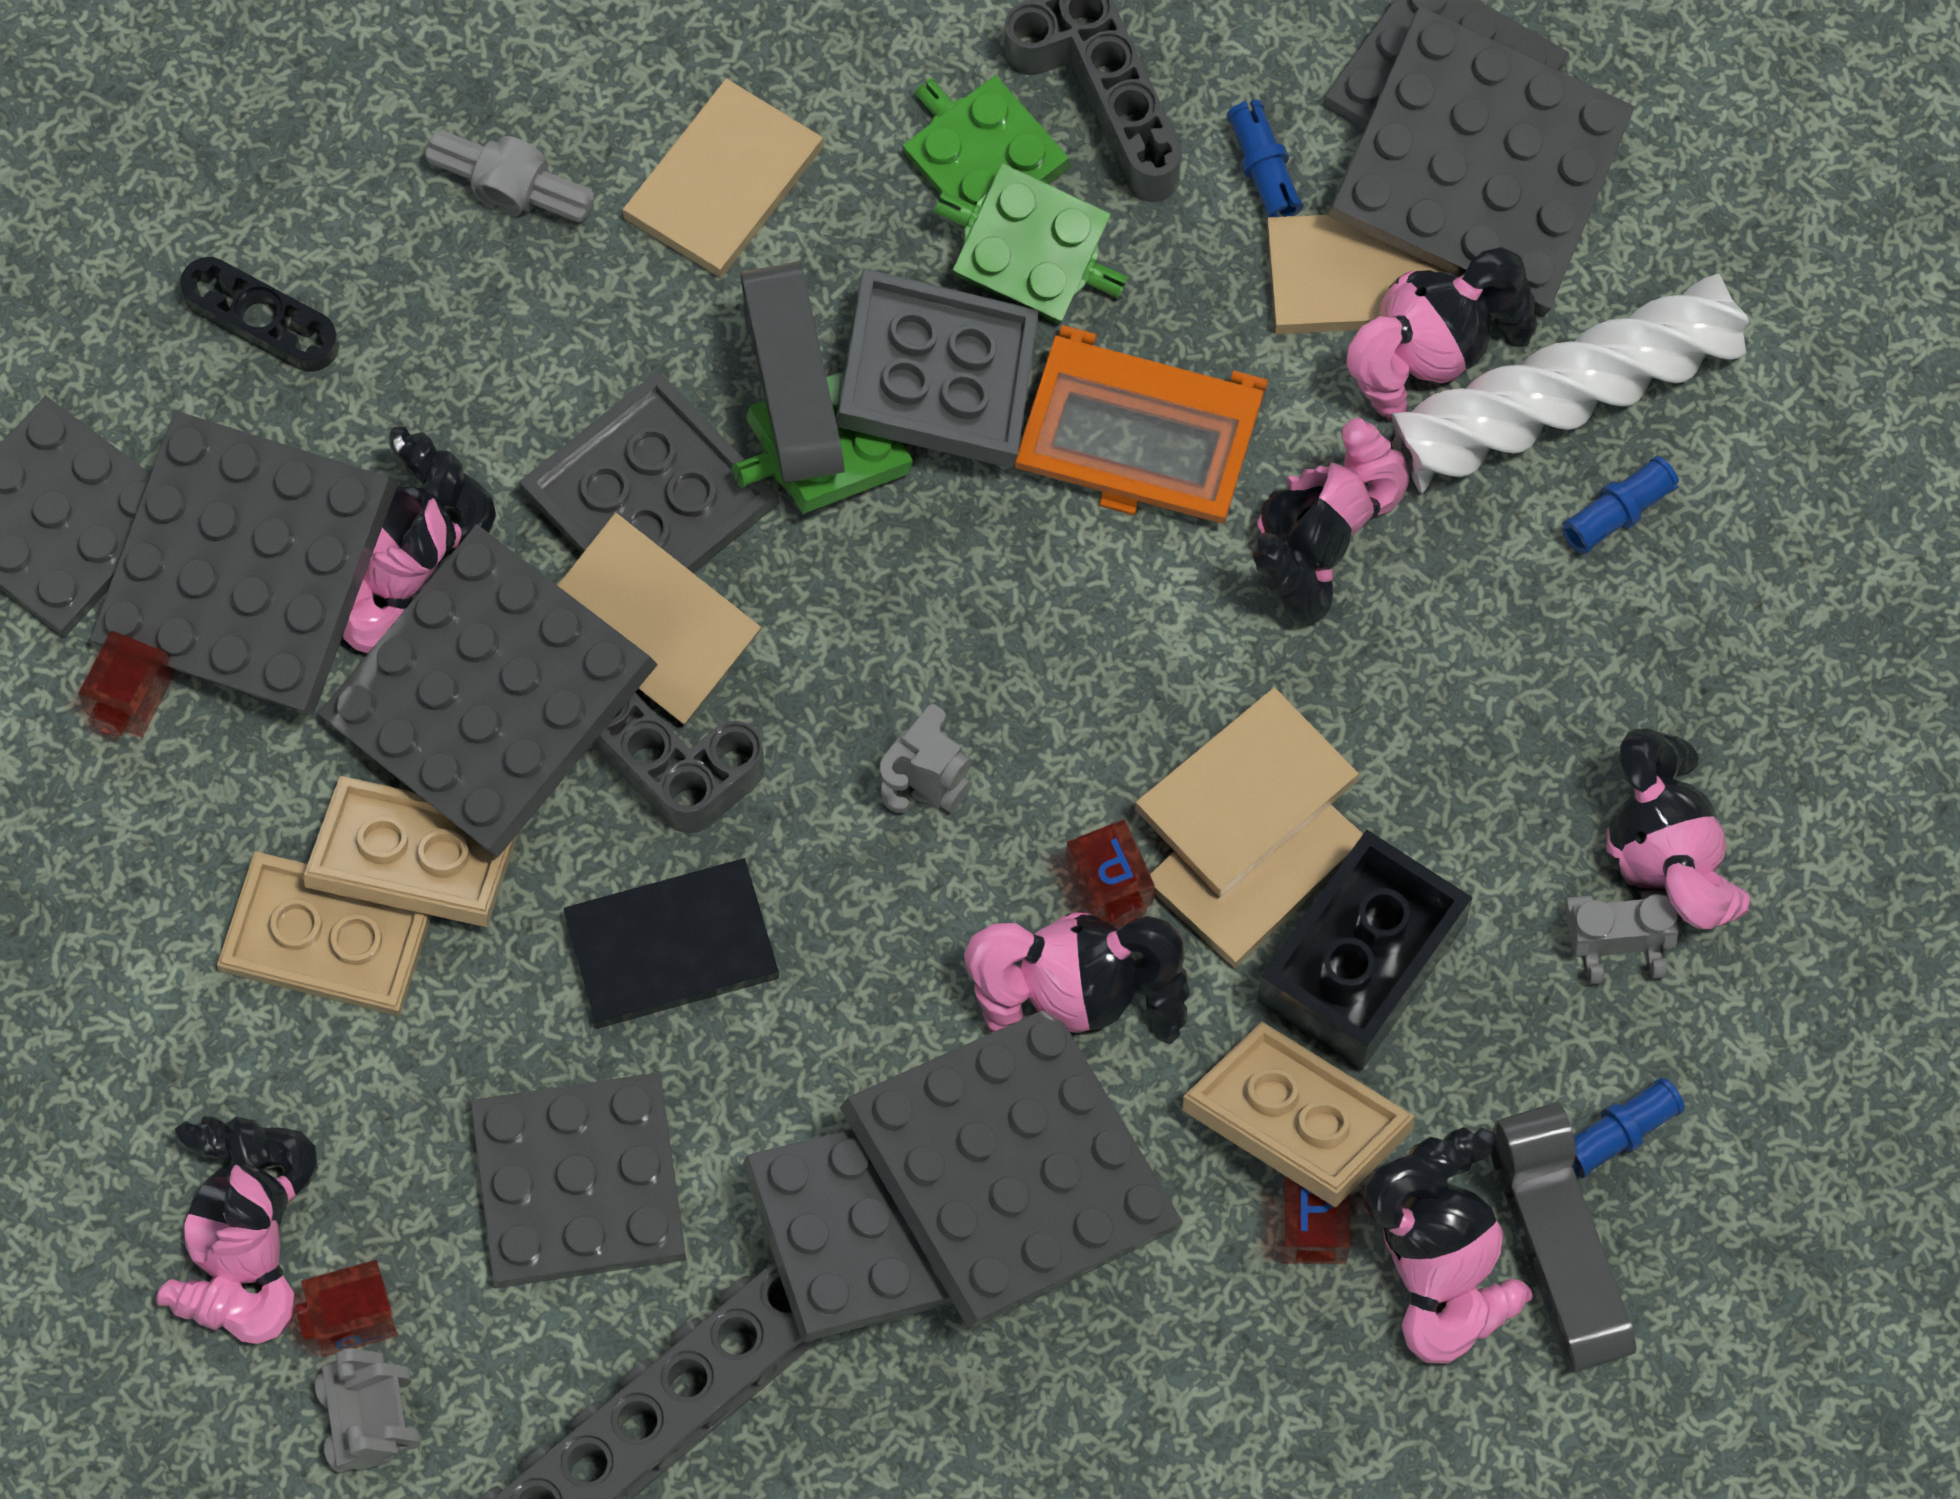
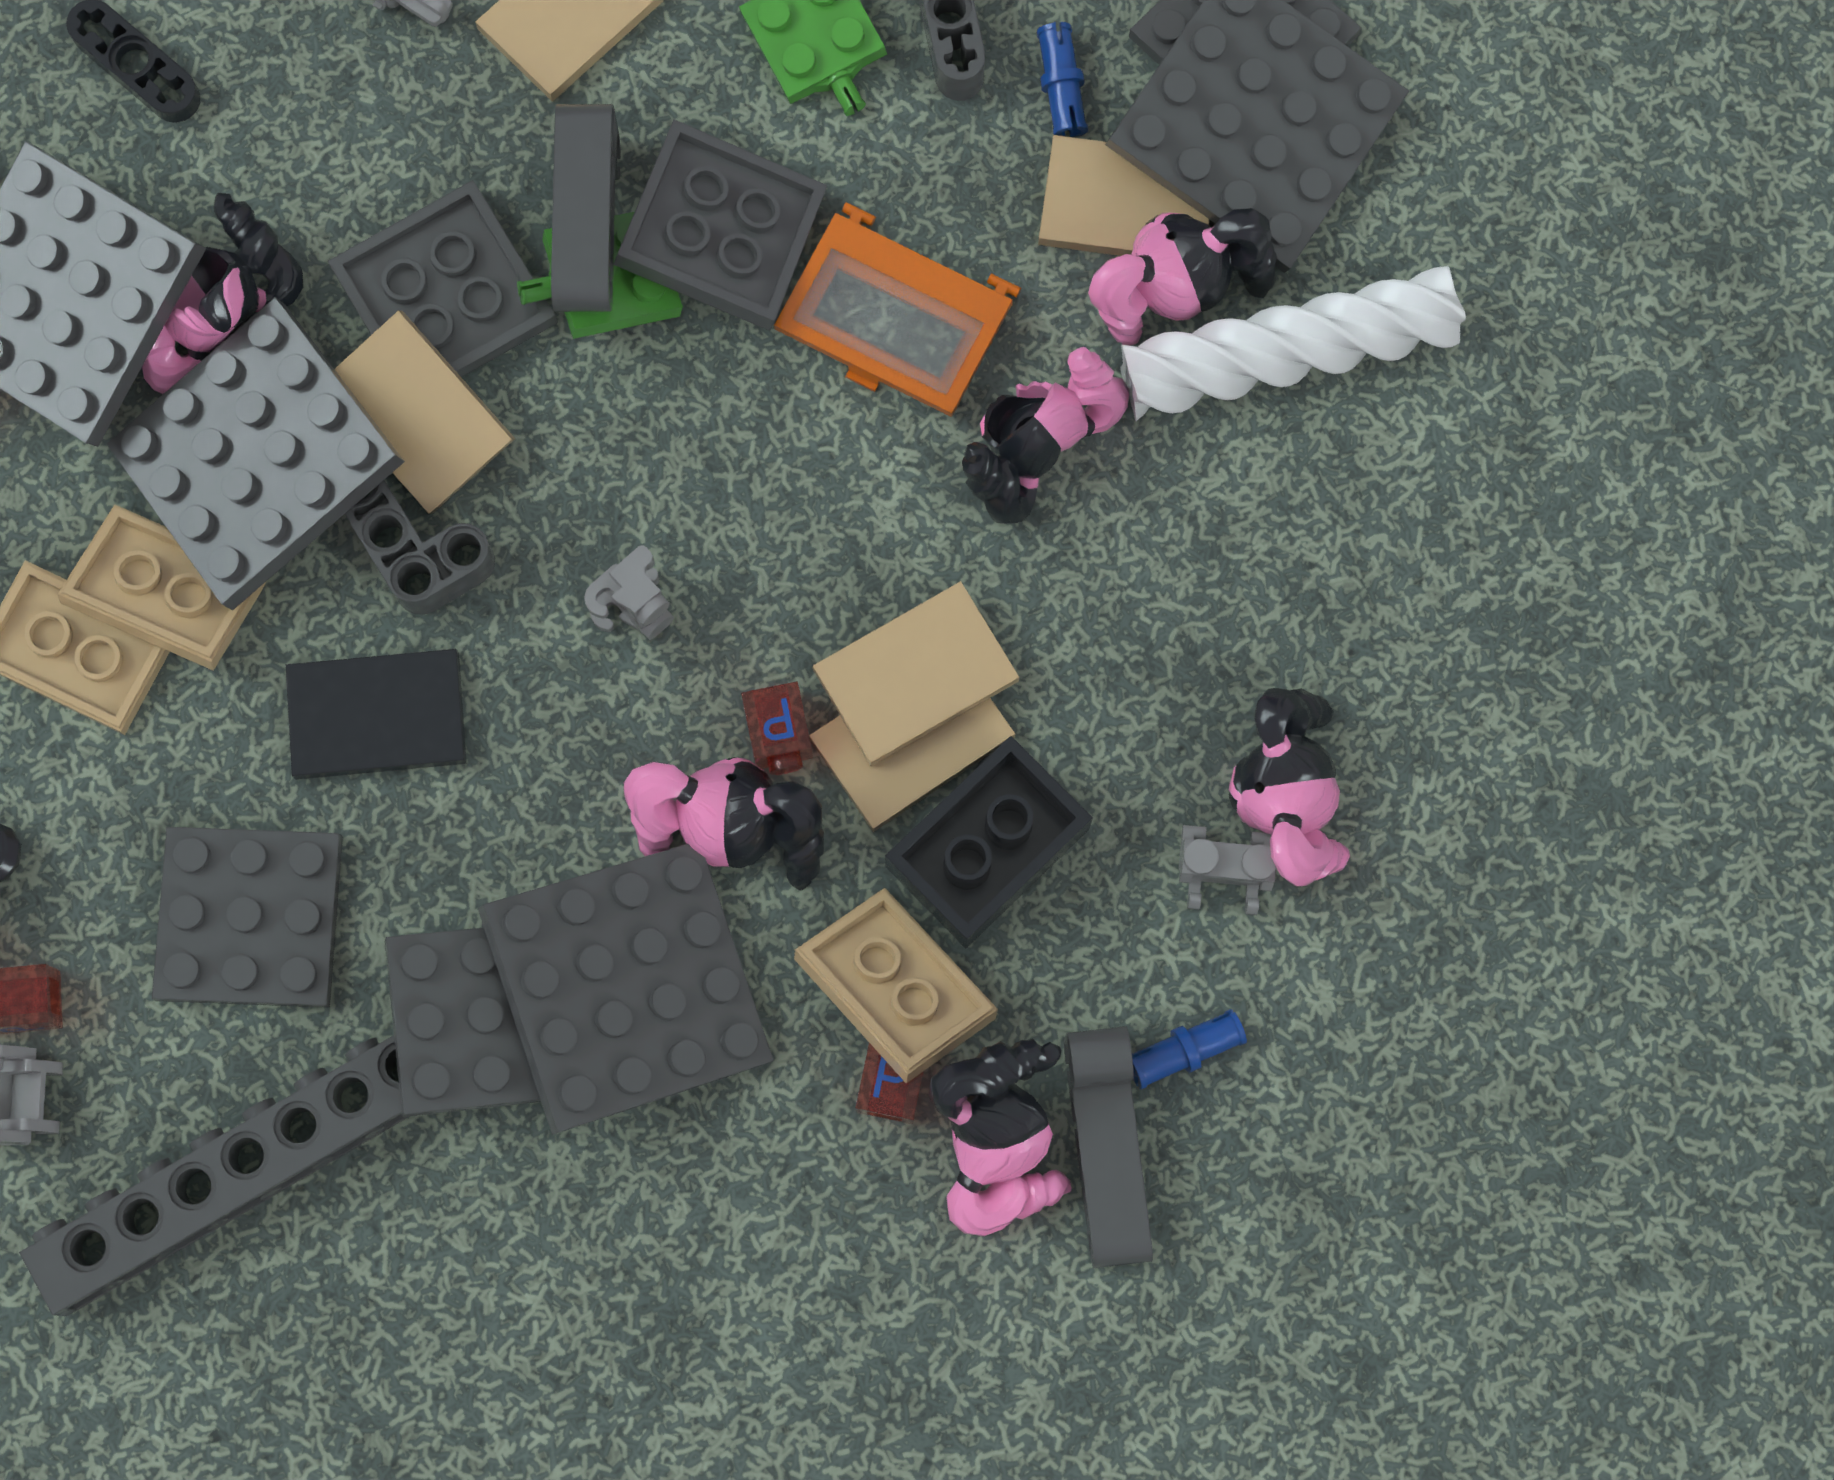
camera: 10 degrees right, 10 degrees up
(1030, 243) = (832, 121): bright green plate -> none
(1620, 505) = (1313, 465): blue pin -> none

